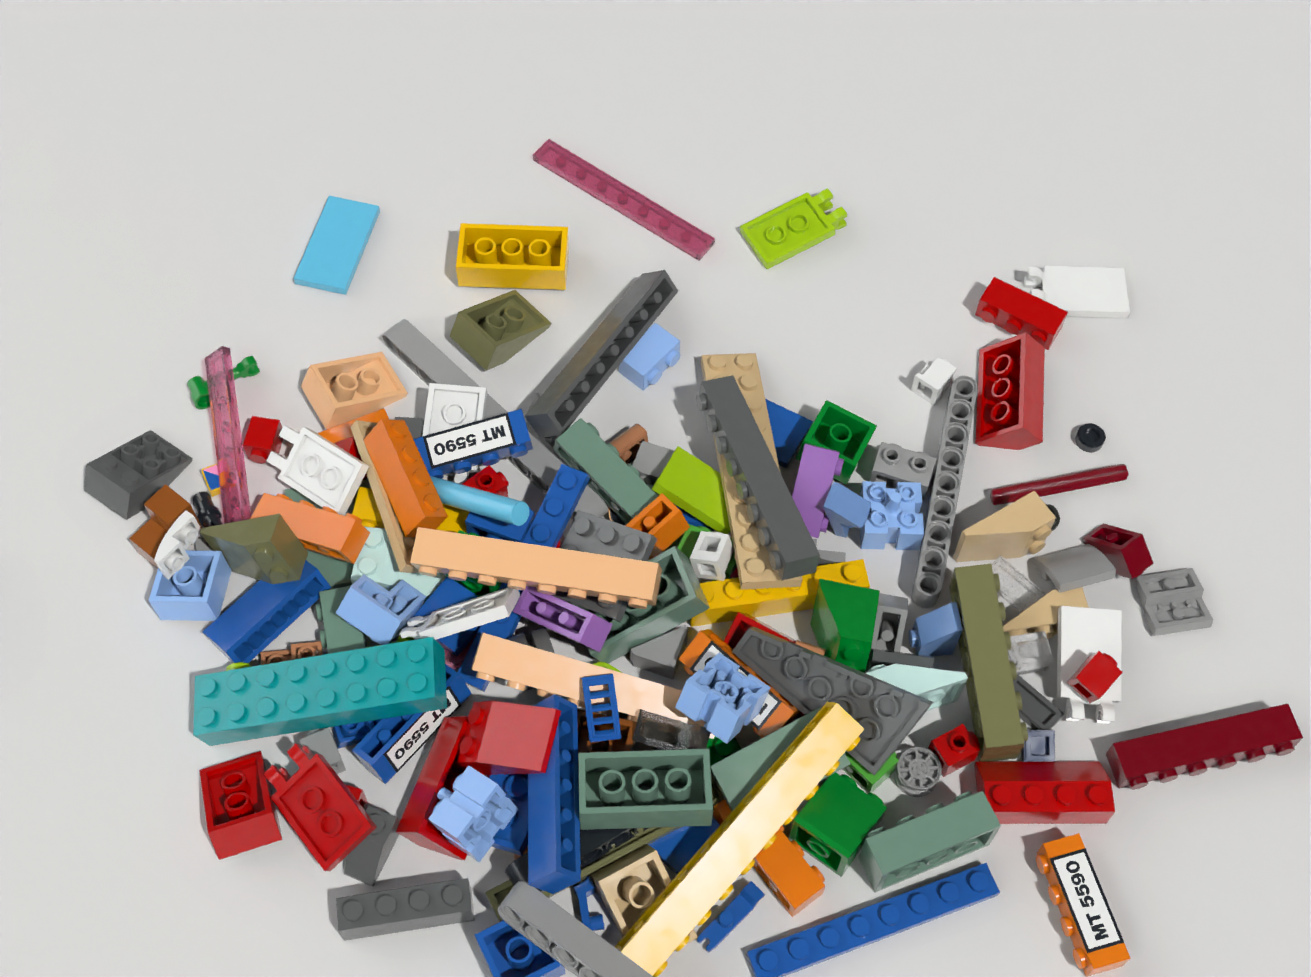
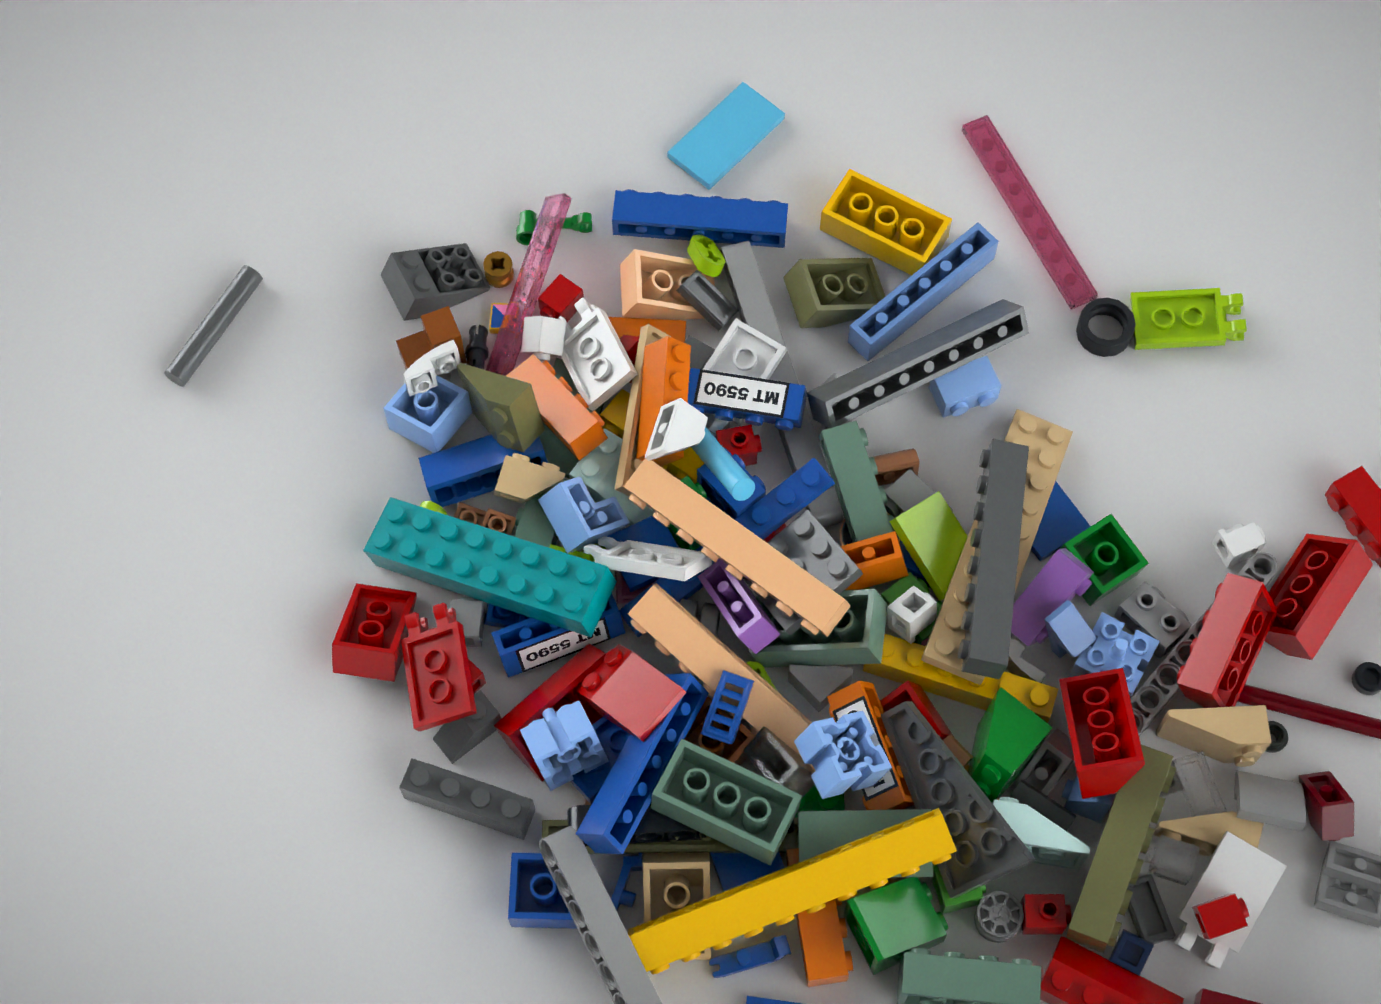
camera: 30 degrees right, 5 degrees up
(195, 445) = (498, 277): none -> pearl gold wheel
(264, 475) = (543, 337): none -> white brick
(313, 602) = (524, 480): none -> tan slope
(350, 319) = (688, 215): none -> blue brick
(373, 346) = (706, 255): none -> lime beam
(394, 382) = (707, 300): none -> dark grey tile
(432, 492) = (676, 429): none -> white slope
(573, 297) = (922, 291): none -> medium blue brick
(735, 244) = (1112, 308): none -> black tyre
(921, 574) = (1102, 731): none -> red slope
(973, 457) = (1227, 643): none -> slope

